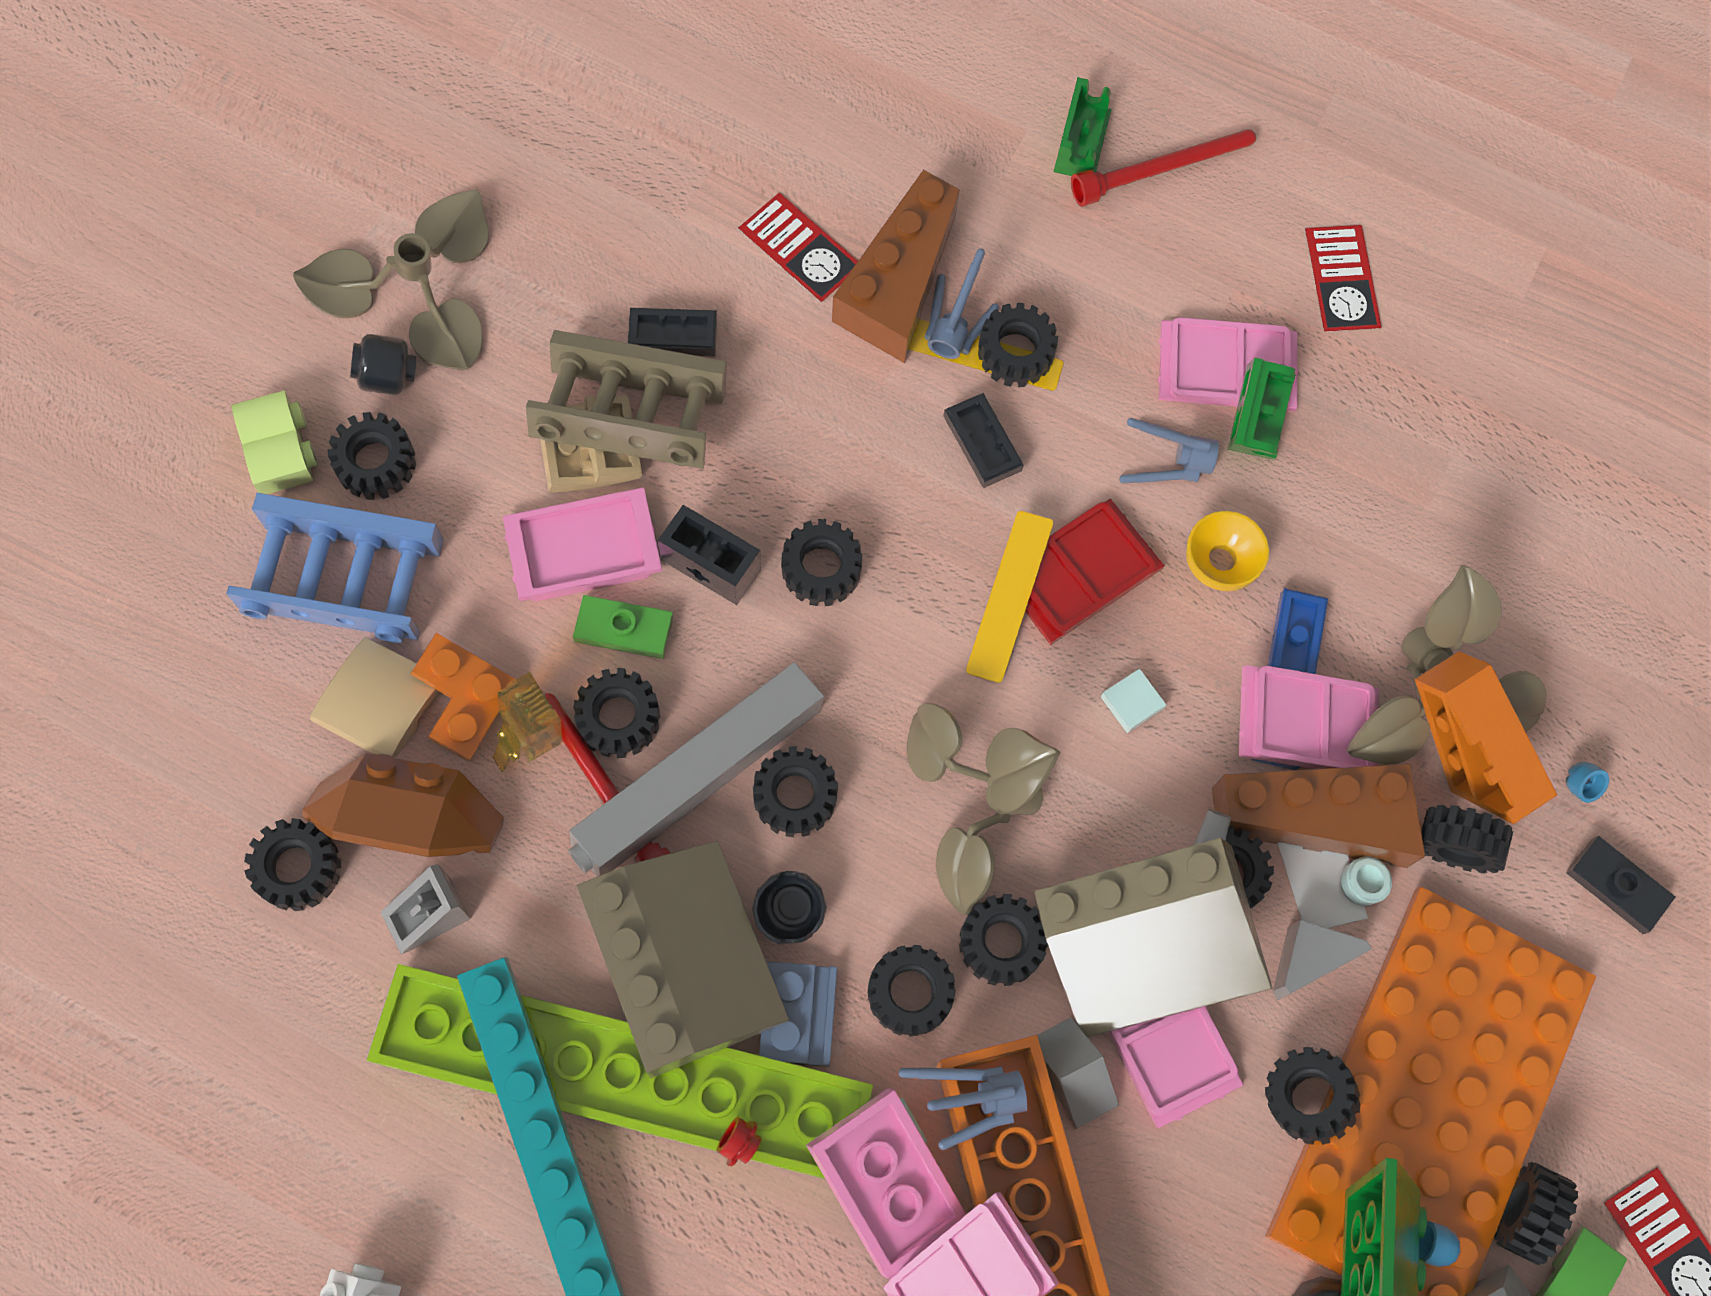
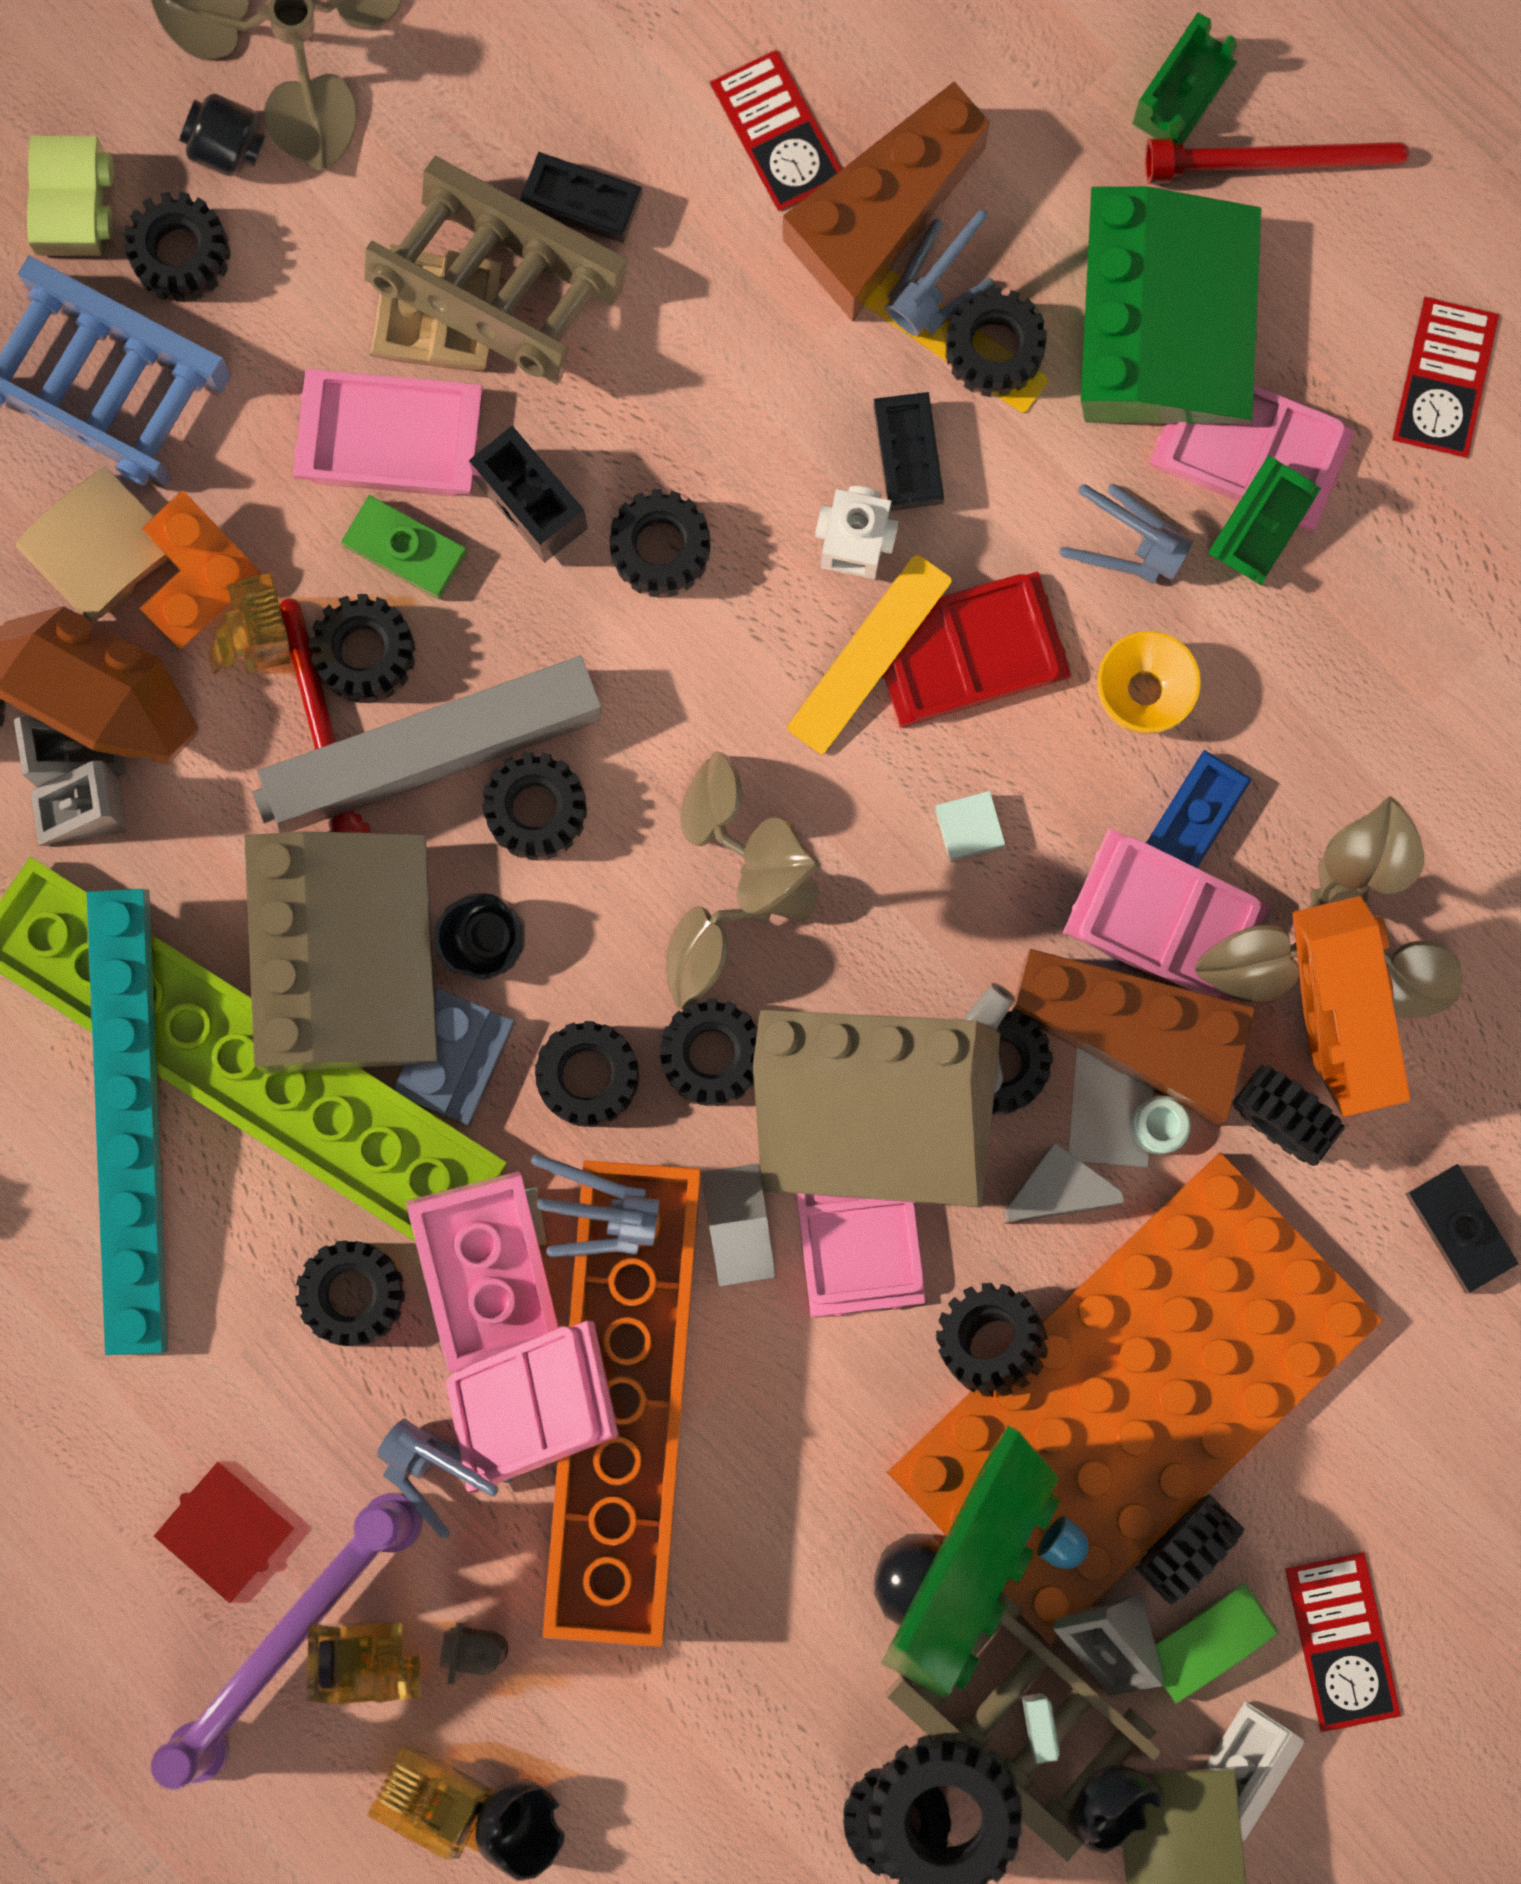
camera: 25 degrees right, 10 degrees up
(393, 871) = (50, 754): none -> light grey slope
(739, 1141) = (336, 1173): red plate -> none
(749, 1234) = (315, 1286): none -> black tyre
(969, 508) = (856, 531): none -> white brick
(1134, 284) = (1170, 308): none -> green slope
(1583, 787) = (1466, 1099): dark azure hinge -> none

